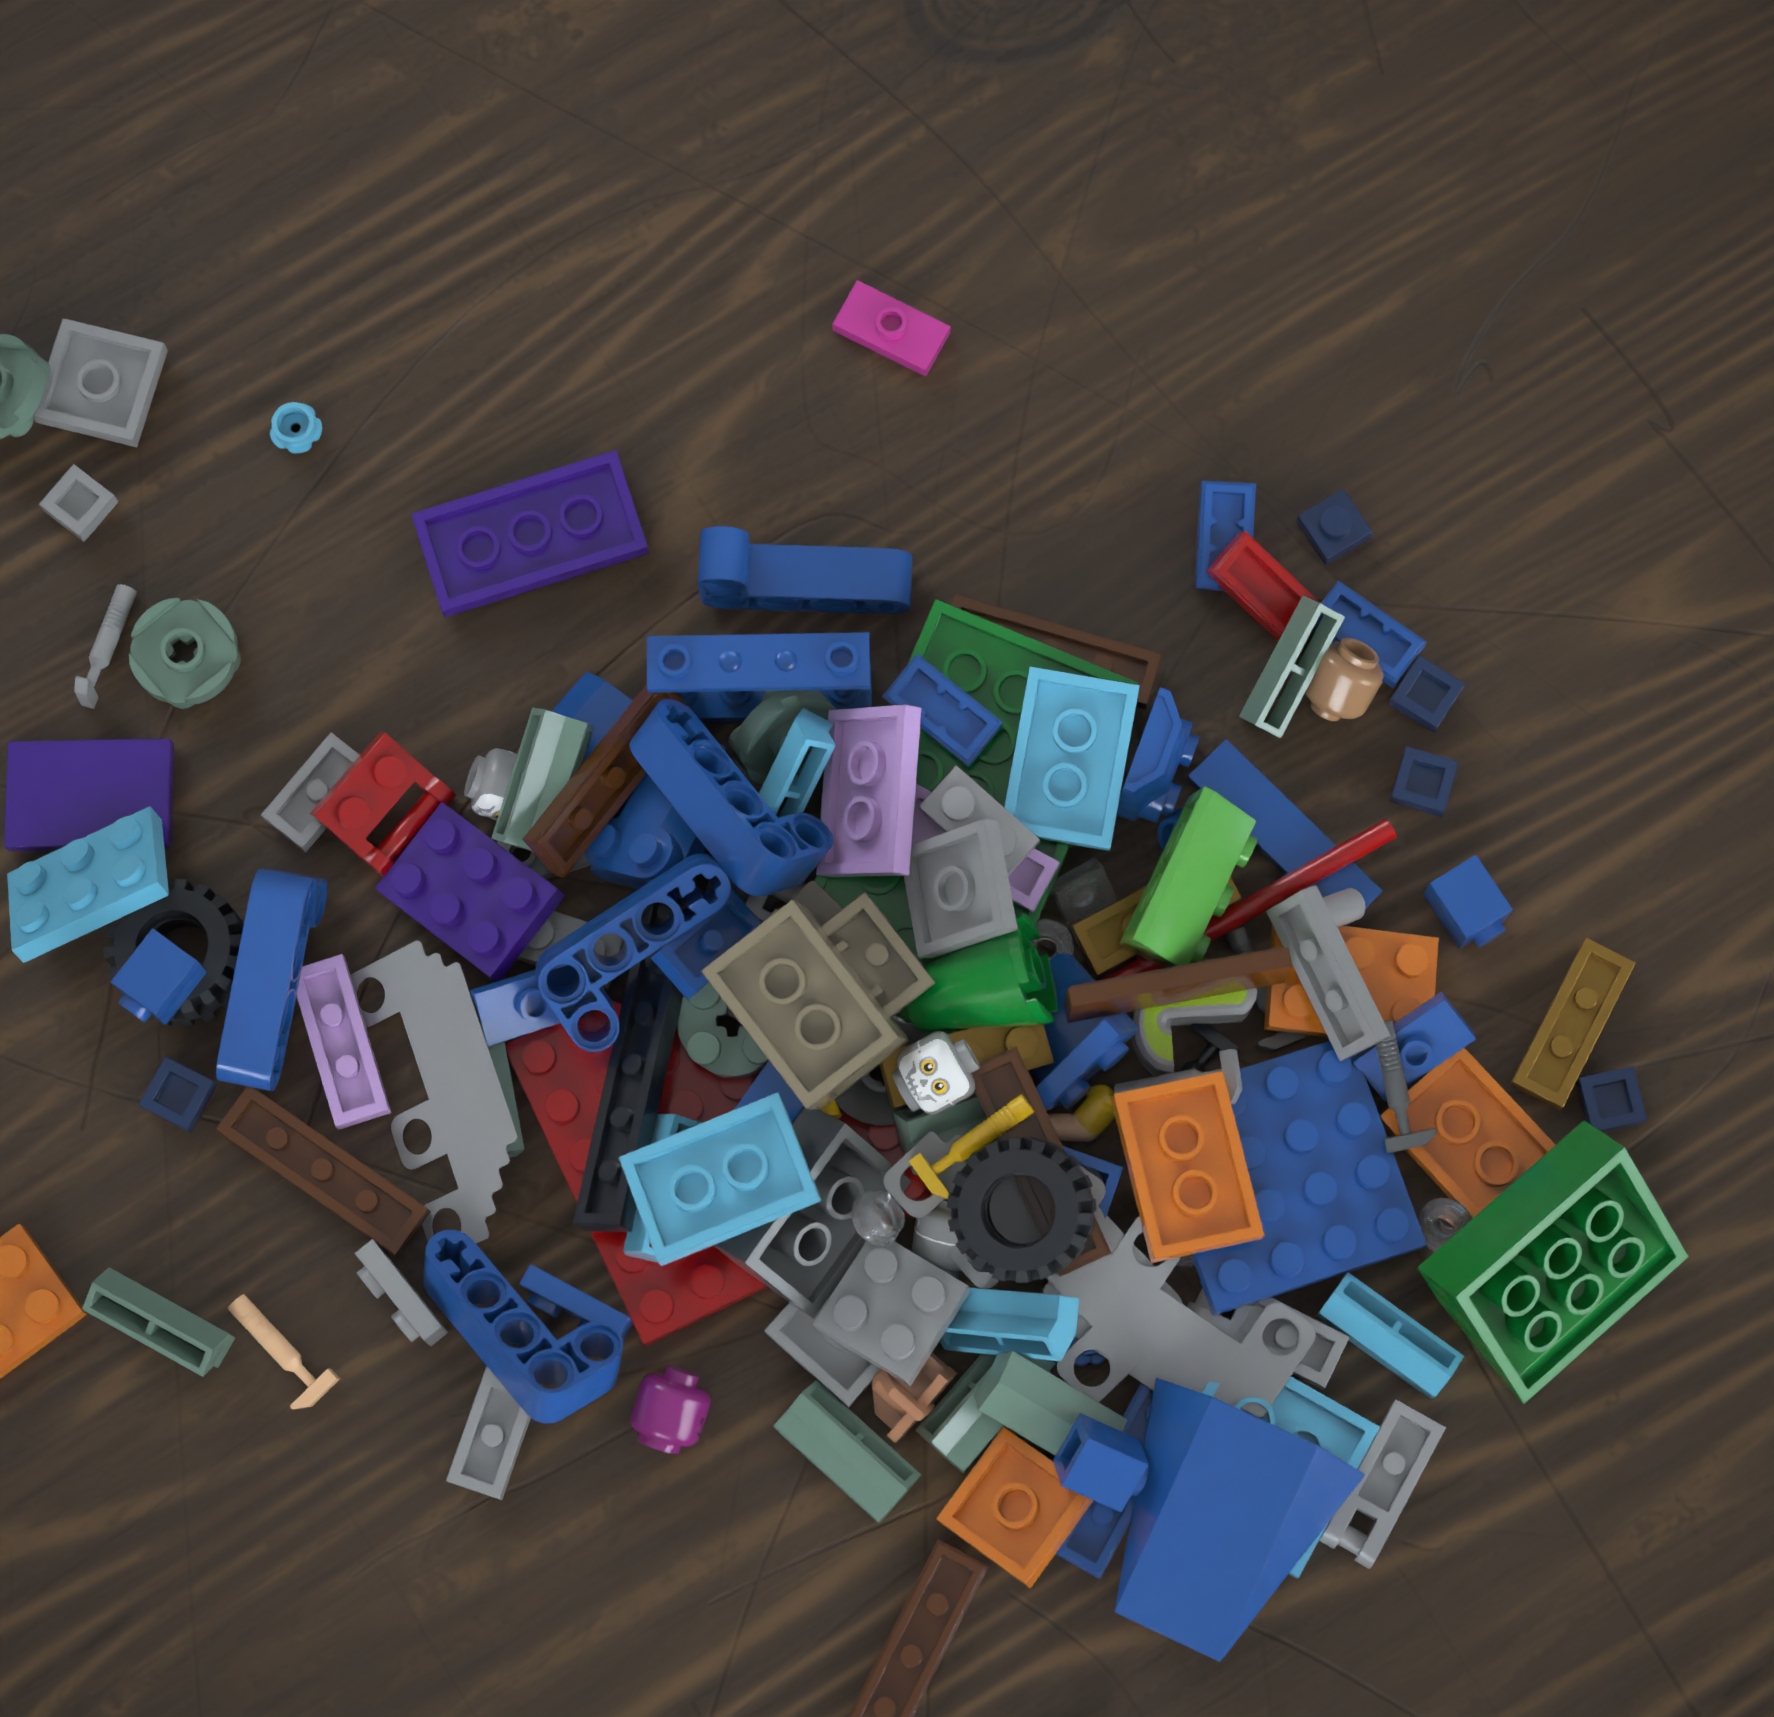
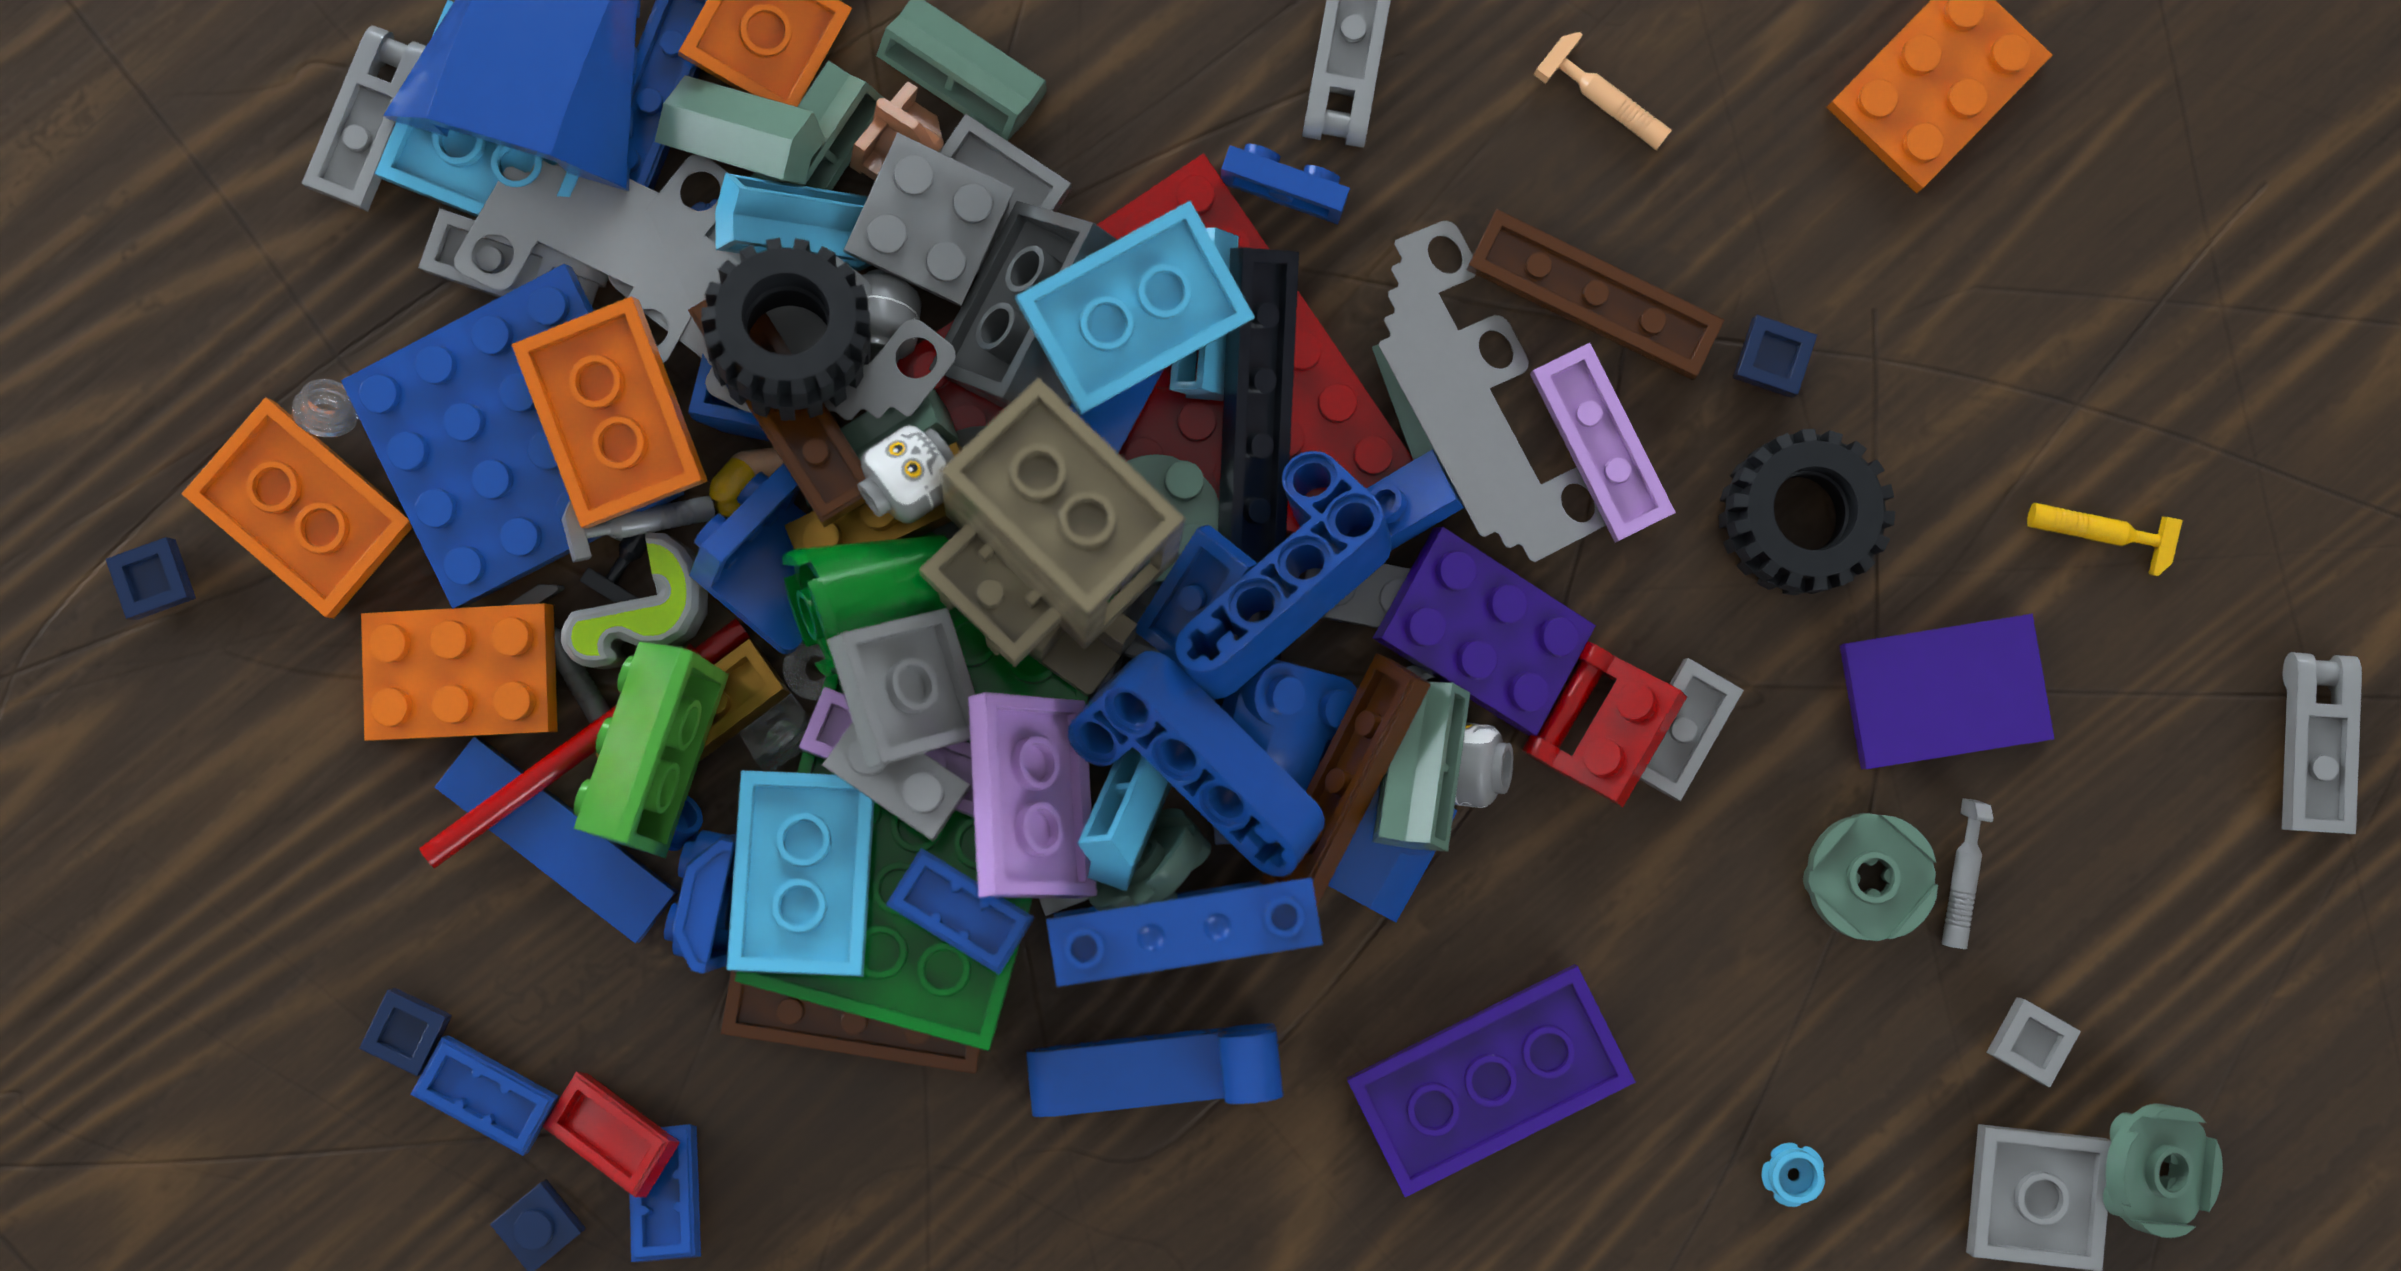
camera: 165 degrees right, 10 degrees up
(87, 884) = (1927, 572): medium azure plate -> none
(157, 978) = (1825, 457): blue brick -> none
(161, 1315) = (1746, 100): sand green piece -> none
(268, 976) = (1699, 502): blue beam -> none
(383, 1276) = (1465, 152): light grey plate -> none
(462, 1276) = (1350, 145): blue beam -> none
(670, 1410) = (1162, 83): magenta head -> none
(877, 1217) = (955, 309): clear plate -> none
(971, 1143) = (858, 403): yellow piece -> none
(1101, 1463) = (672, 77): blue brick -> none
(1177, 984) = (645, 623): reddish brown tile -> none
(1283, 662) = (563, 1037): sand green piece -> none
(1326, 967) = (477, 671): light grey piece -> none
(1345, 680) = (502, 1031): medium nougat head -> none
(1390, 1336) = (377, 270): medium azure piece -> none
(1398, 1095) = (387, 546): dark grey piece -> none
(1423, 1040) = (376, 604): blue plate -> none
(1424, 781) = (399, 924): dark blue plate -> none
(1468, 904) = (331, 783): blue brick -> none
(1554, 1260) = (195, 385): green slope -> none
(1572, 1024) = (201, 661): pearl gold plate -> none

